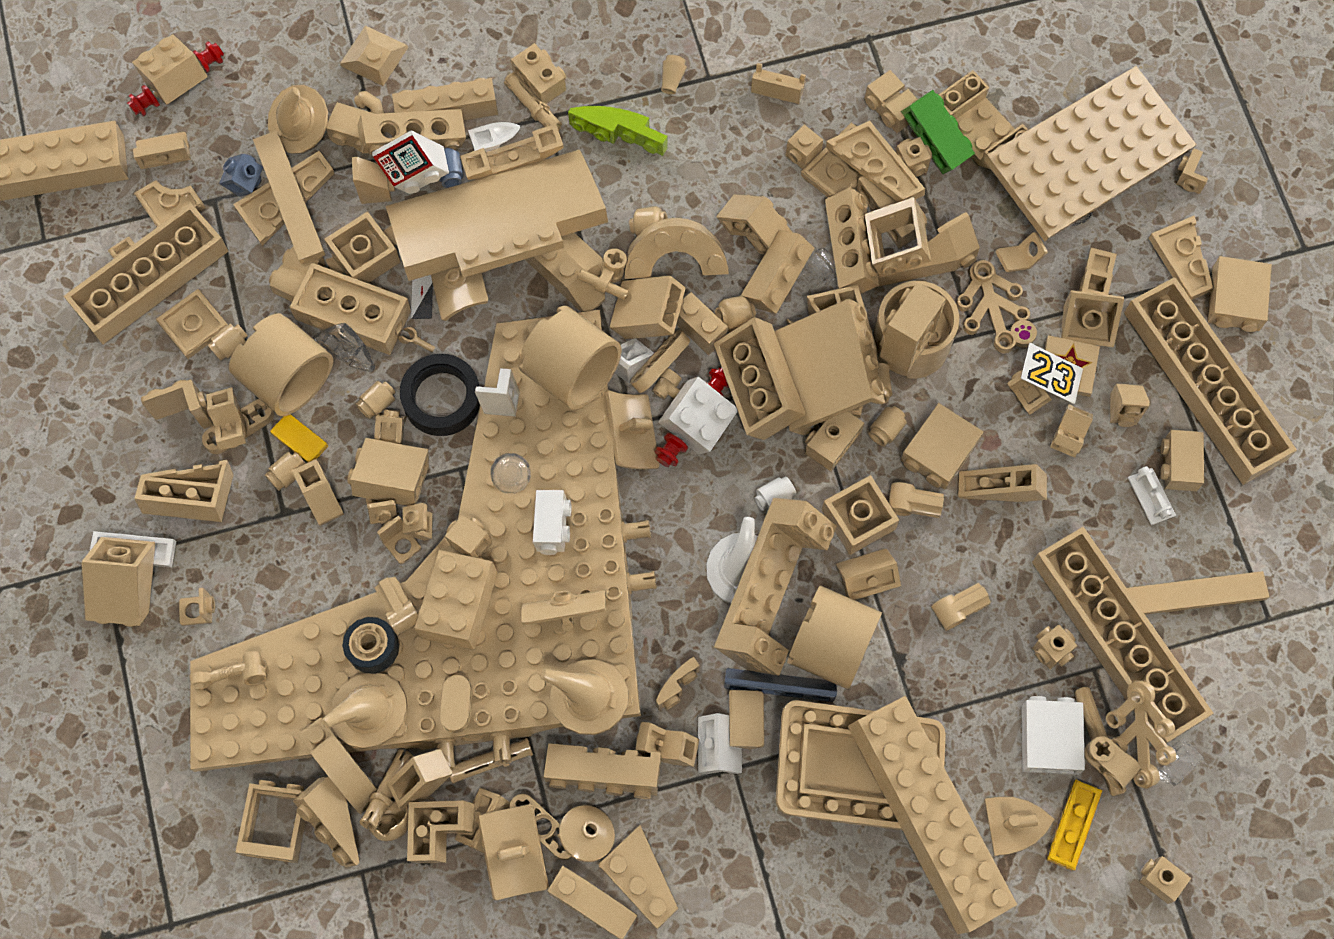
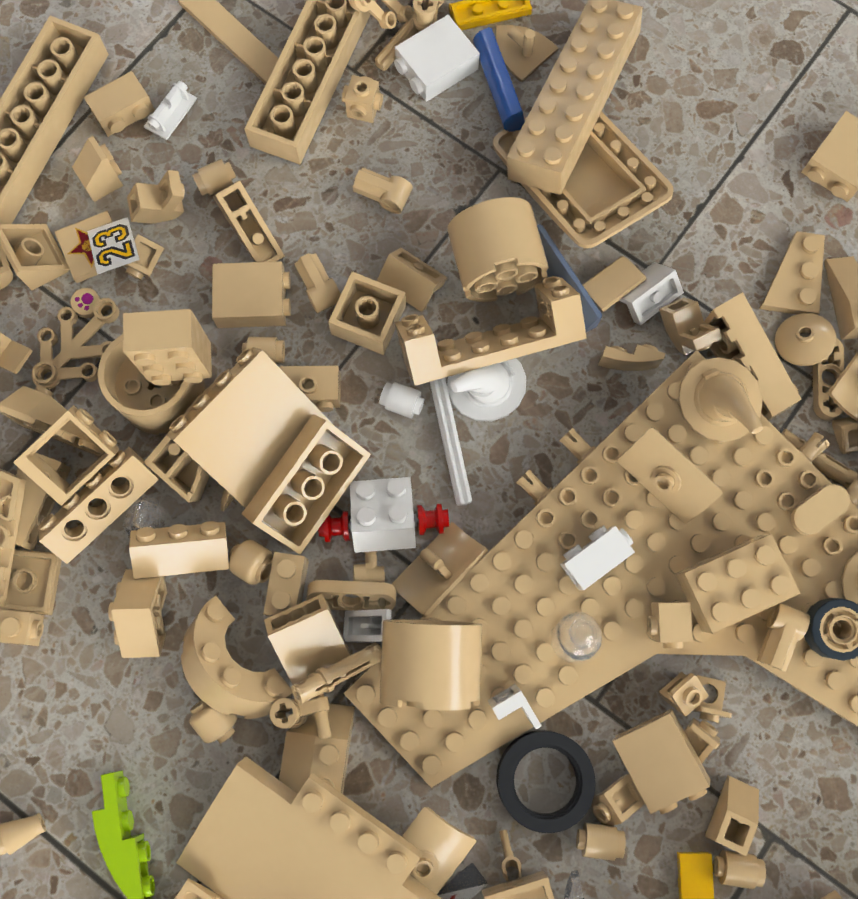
camera: 130 degrees left, 5 degrees up
(614, 302) = (327, 678): none -> tan pin
(708, 503) = (451, 442): none -> white axle
(992, 769) = (499, 80): none -> blue brick
(1064, 487) = (214, 177): none -> tan brick

